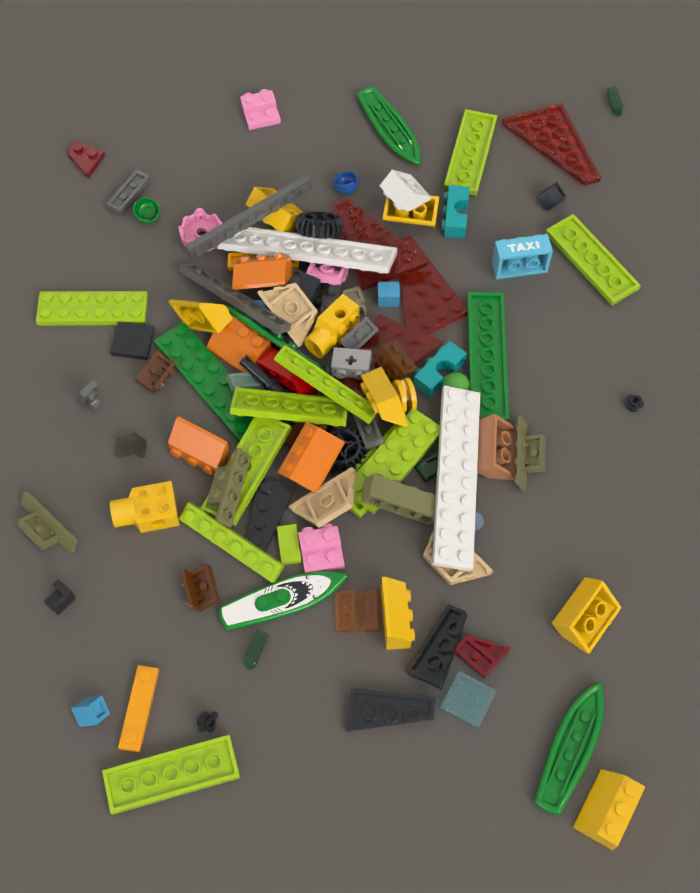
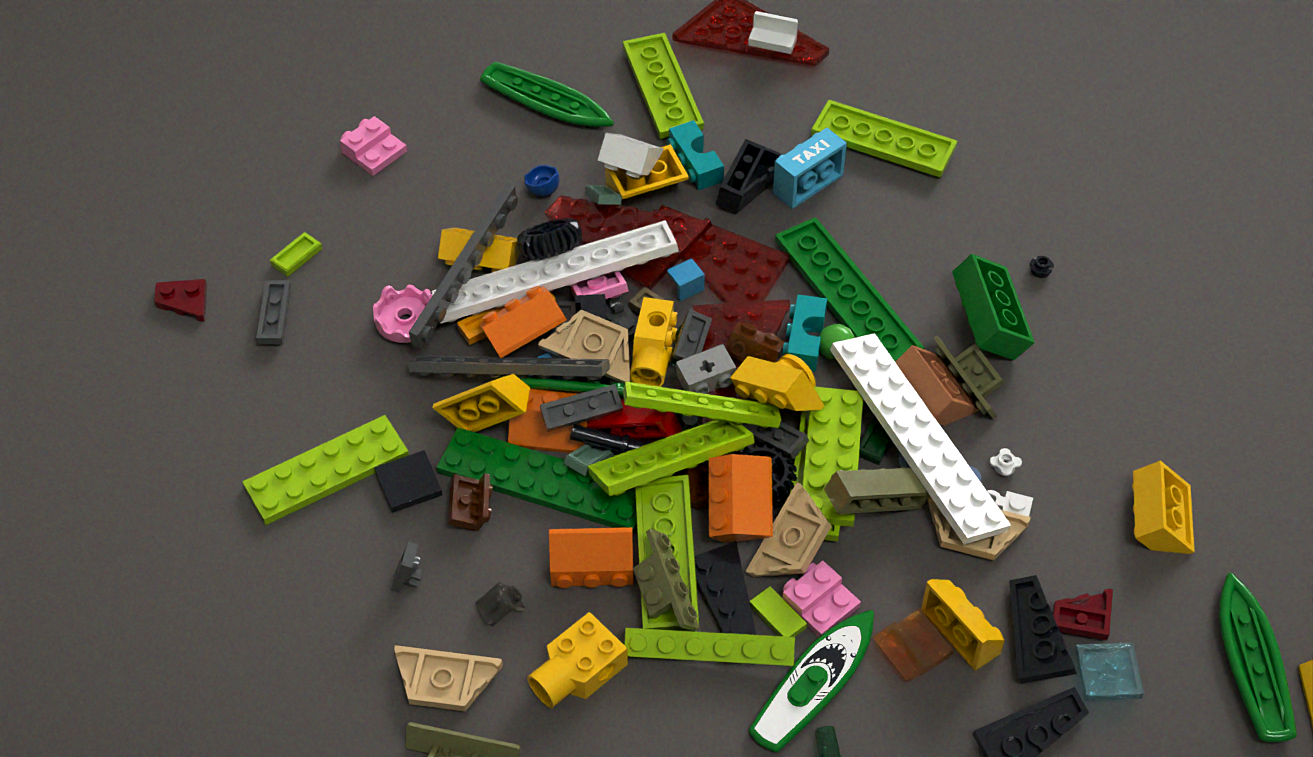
camera: 30 degrees left, 10 degrees down
(68, 474) = (443, 677): none -> tan wing
(146, 210) = (316, 321): green hair -> none
(168, 160) = (296, 254): none -> lime tile
(200, 588) = (713, 717): reddish brown bracket -> none
(252, 347) = (581, 407): none -> dark grey plate
(375, 210) = (603, 194): none -> sand green tile
(476, 242) = (748, 176): none -> black wedge
(490, 555) = (1012, 502): none -> white plate
(503, 529) = (1002, 467): none -> white plate
(551, 196) = (790, 92): black panel -> none
(567, 149) = (773, 32): none -> white panel
(572, 415) = (992, 307): none -> green brick

